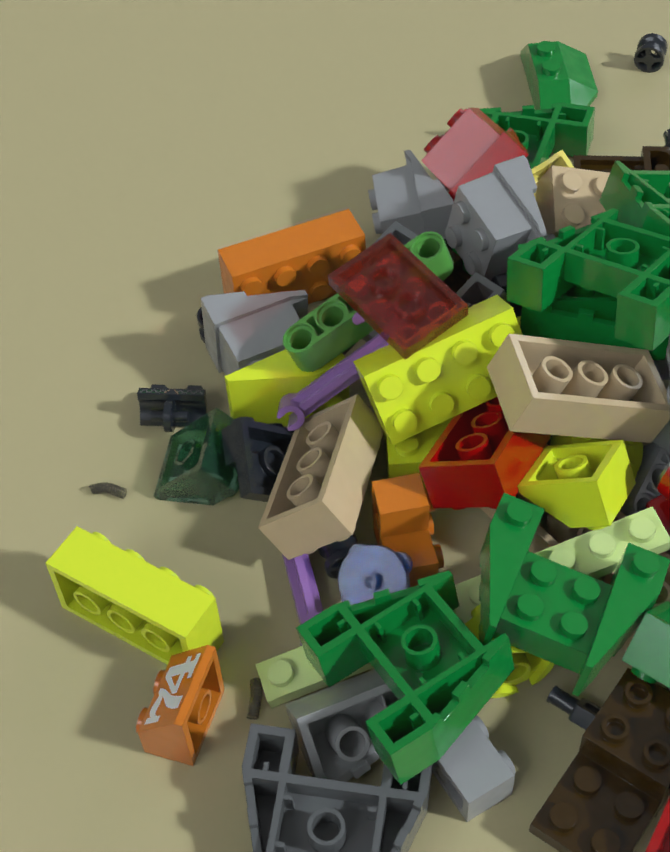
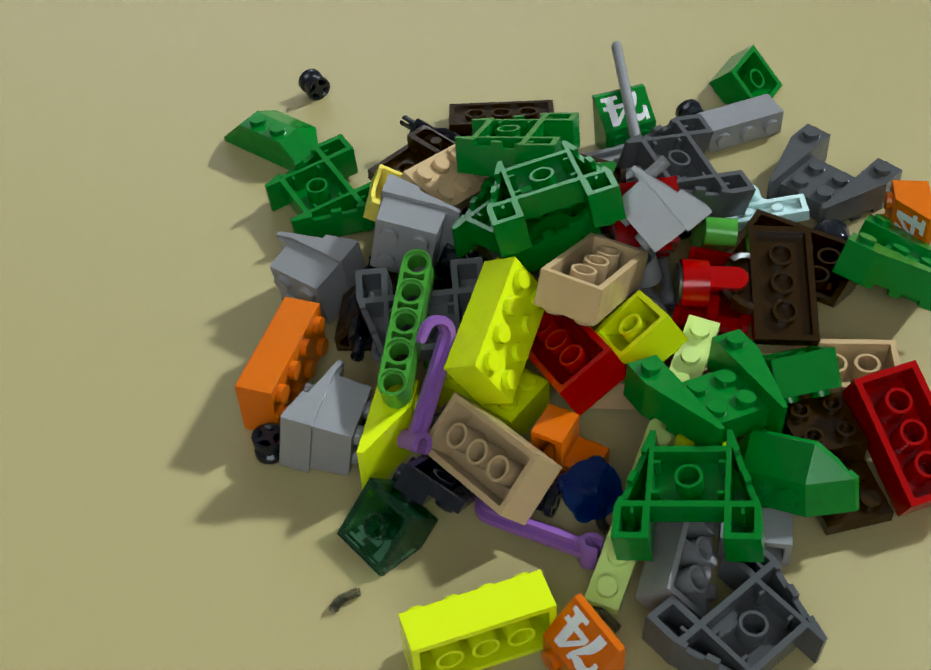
camera: 50 degrees left, 5 degrees down
(171, 406) = (319, 513): black hips -> none
(398, 295) = (441, 301): clear red plate -> none
(470, 149) = (331, 205): piece -> none
(540, 748) = (798, 475): none -> green wedge

